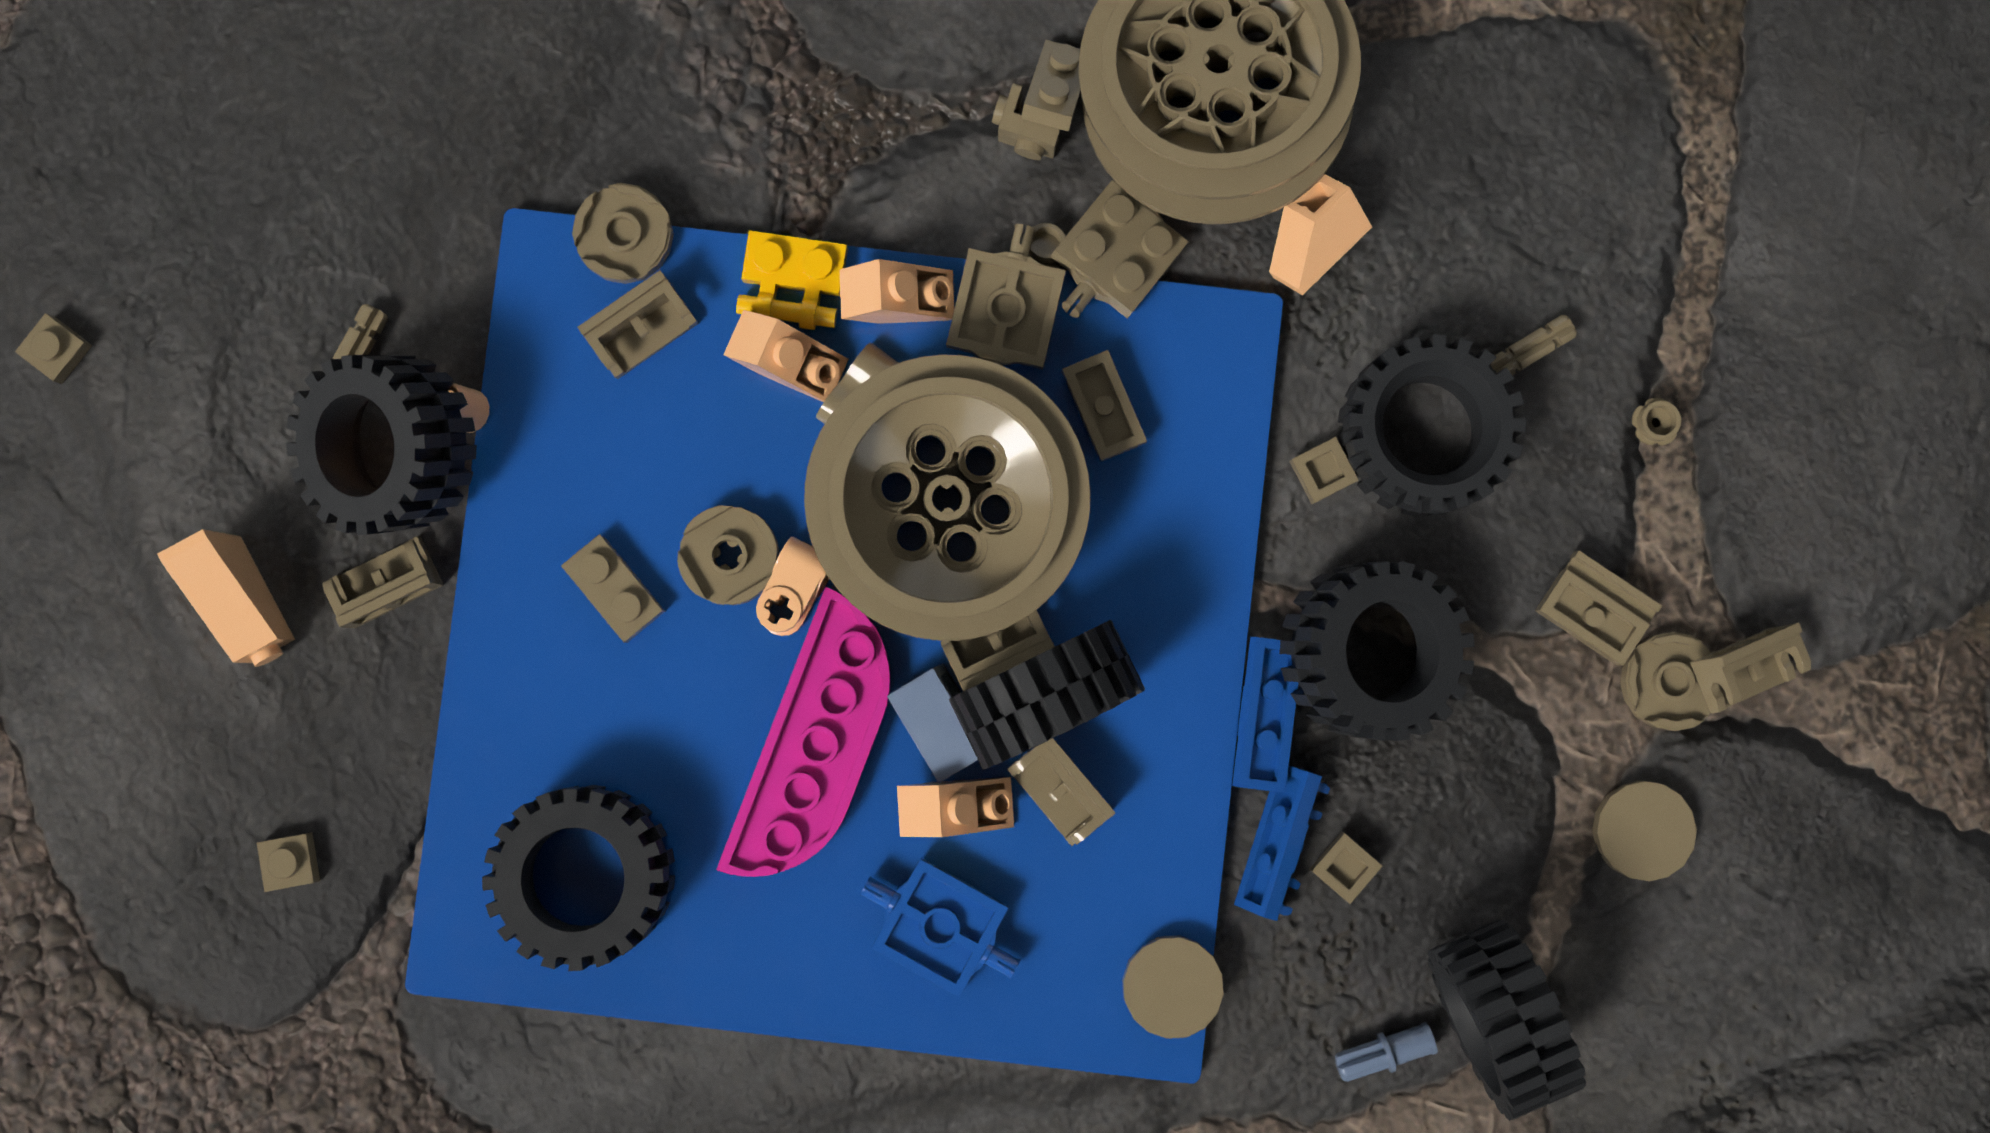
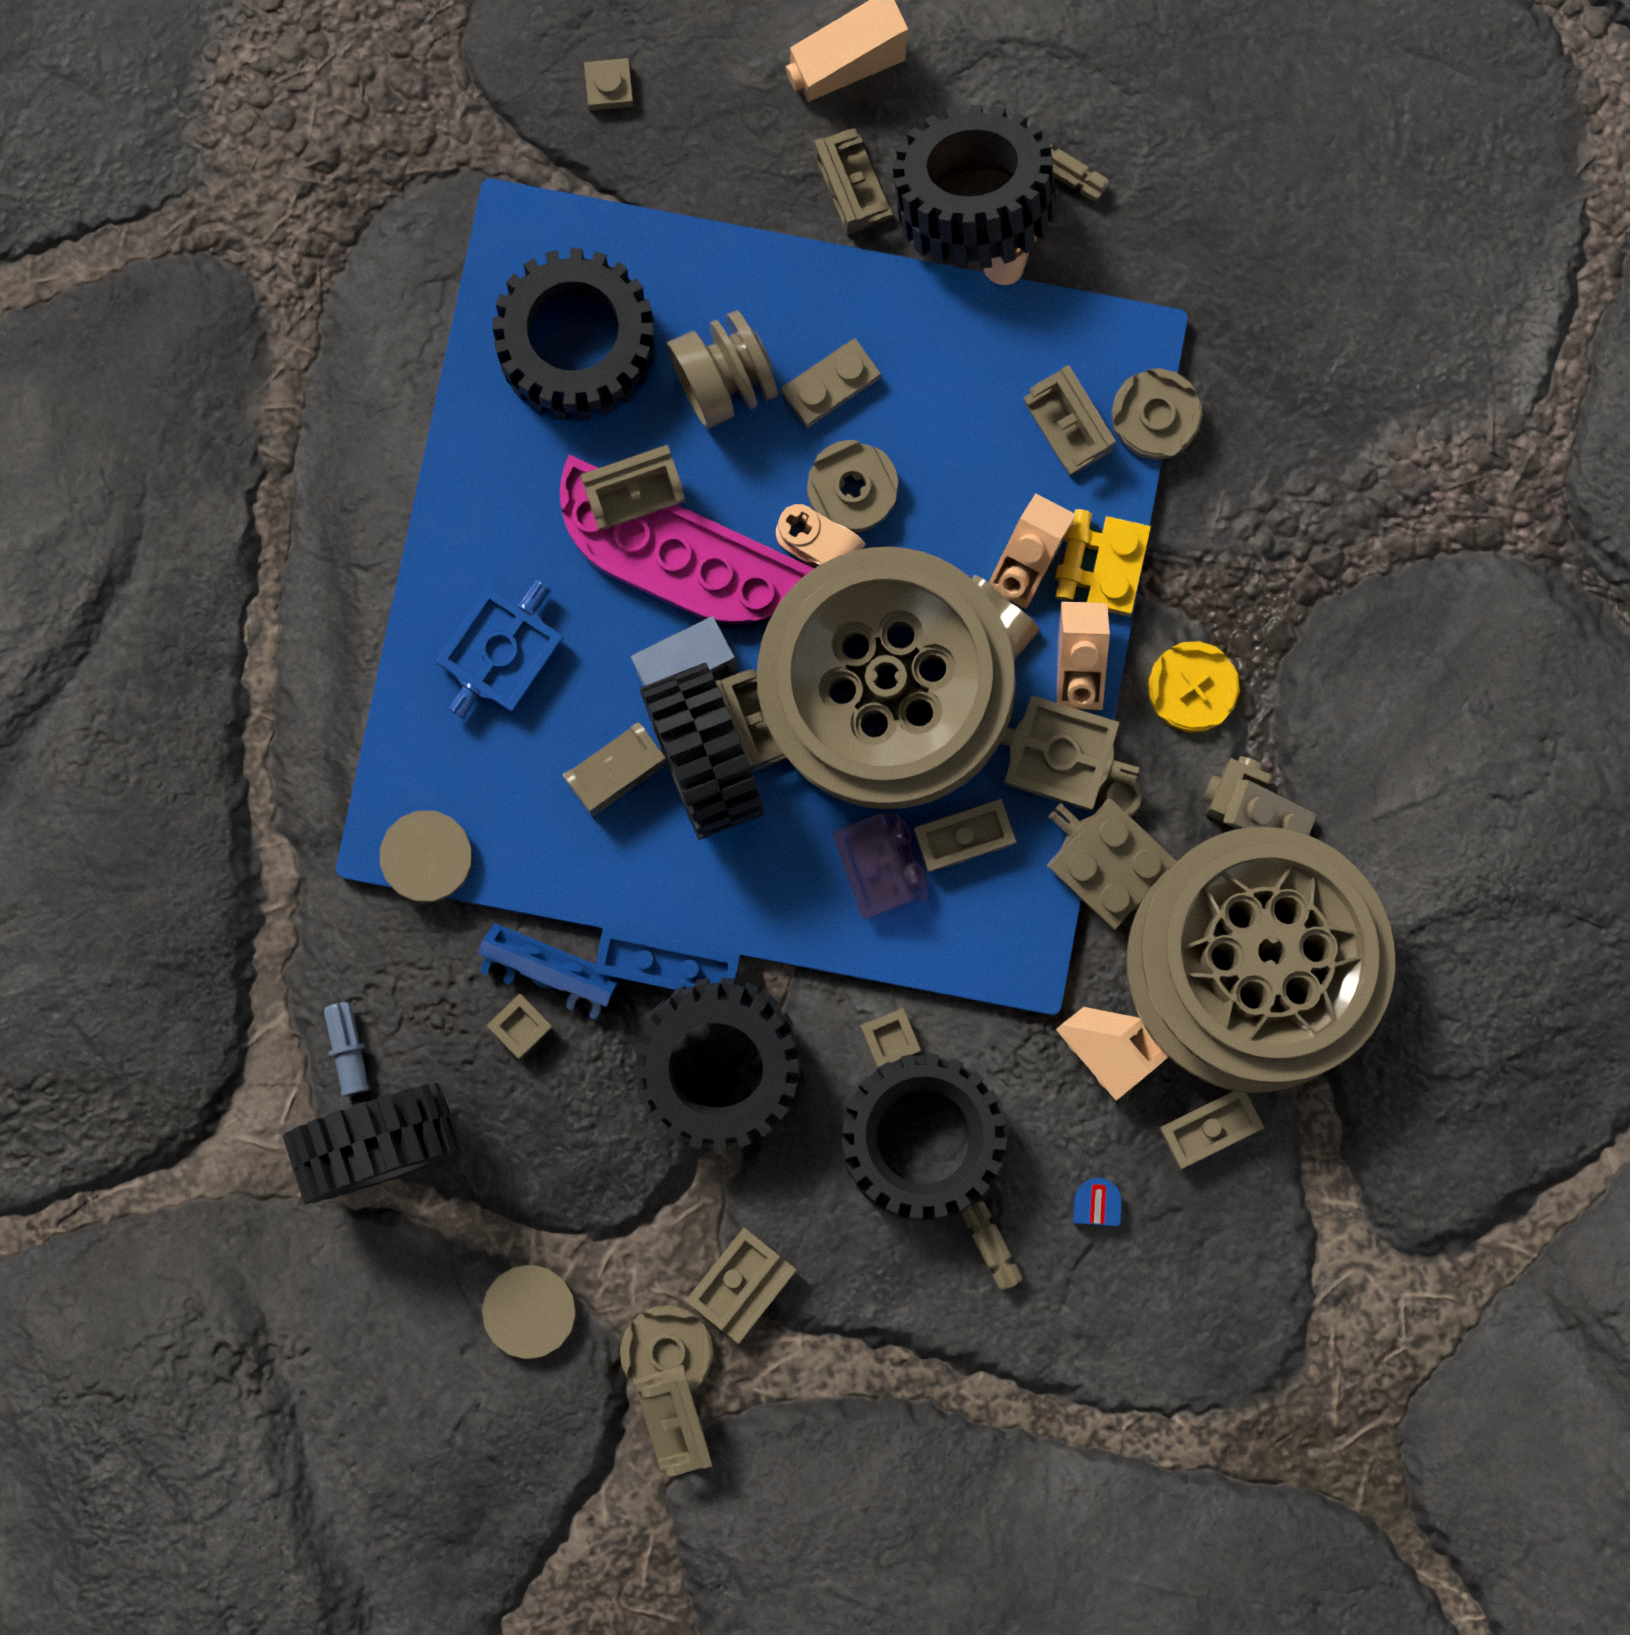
camera: 90 degrees right, 5 degrees down
(608, 707) = (722, 369): none -> dark tan wheel
(751, 795) = (633, 488): none -> dark tan hinge
(917, 178) = (1193, 687): none -> yellow tile
(955, 807) = (606, 672): light nougat slope -> none
(1143, 493) = (881, 864): none -> clear purple bracket
(1390, 129) = (1211, 1128): none -> dark tan plate
(1475, 243) = (1097, 1203): none -> blue tile
(1669, 422) = (926, 1359): dark tan plate -> none

